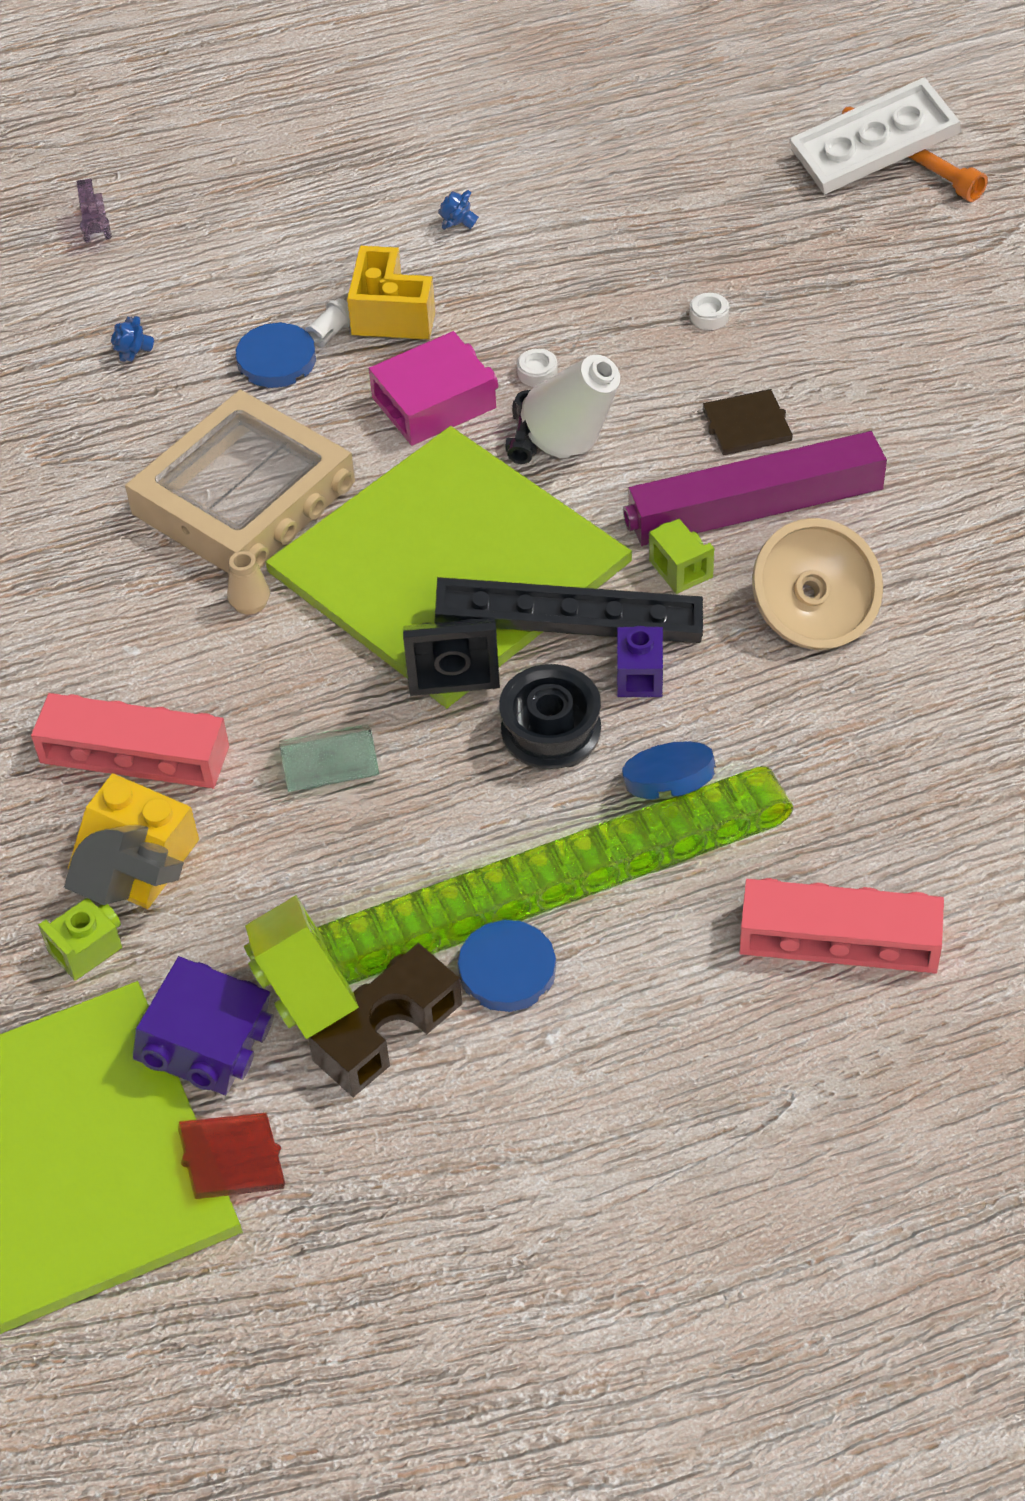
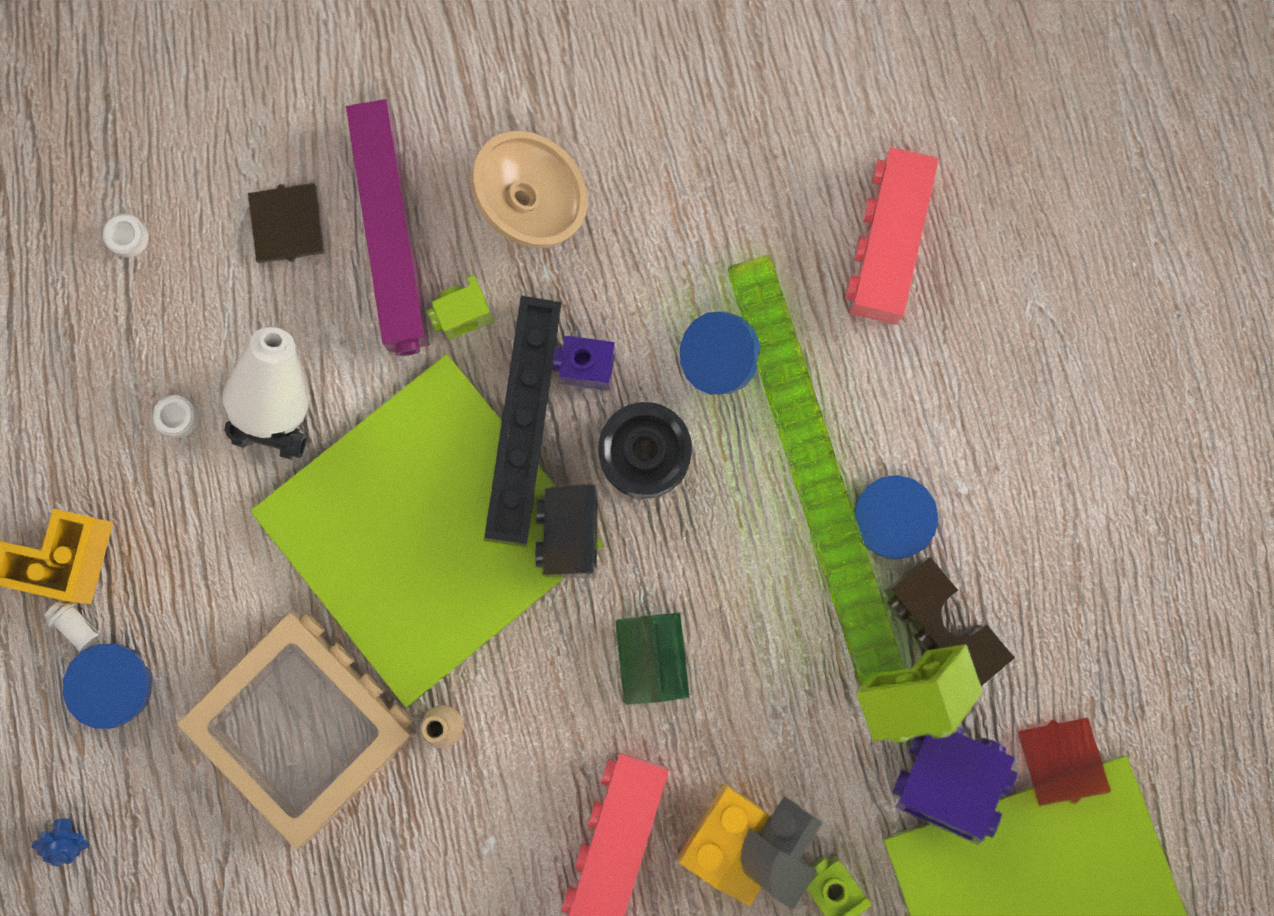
camera: 85 degrees left, 30 degrees up
(433, 387) = (193, 522): dark pink brick -> none

